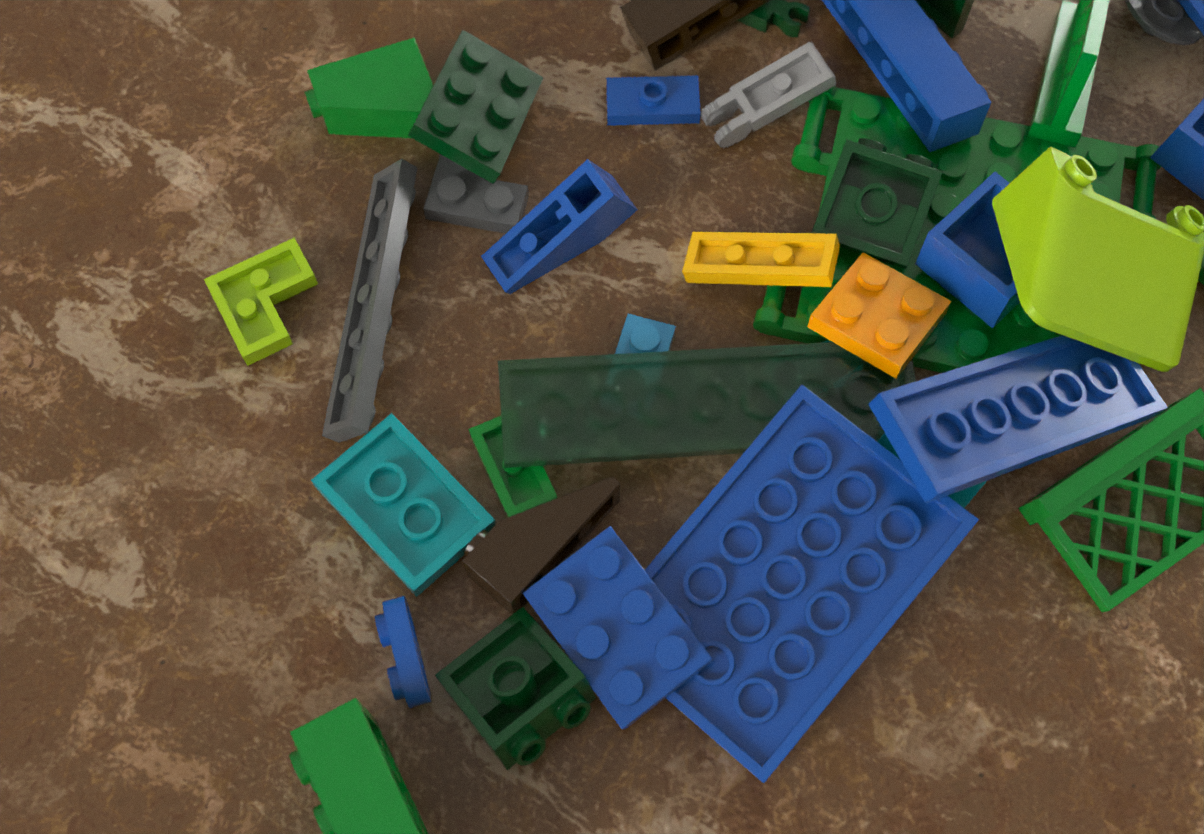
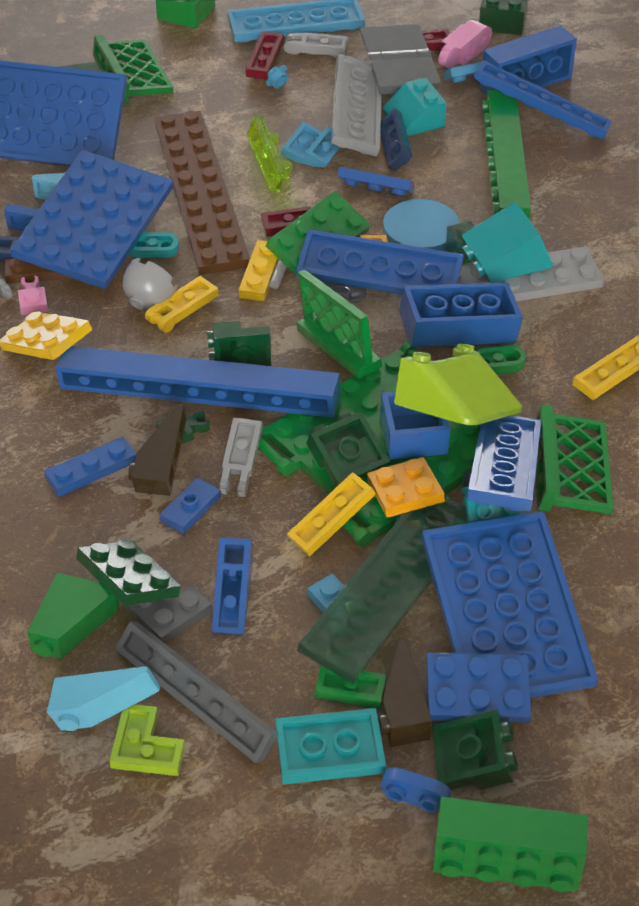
camera: 55 degrees left, 20 degrees down
(270, 202) = (94, 697): none -> medium azure slope

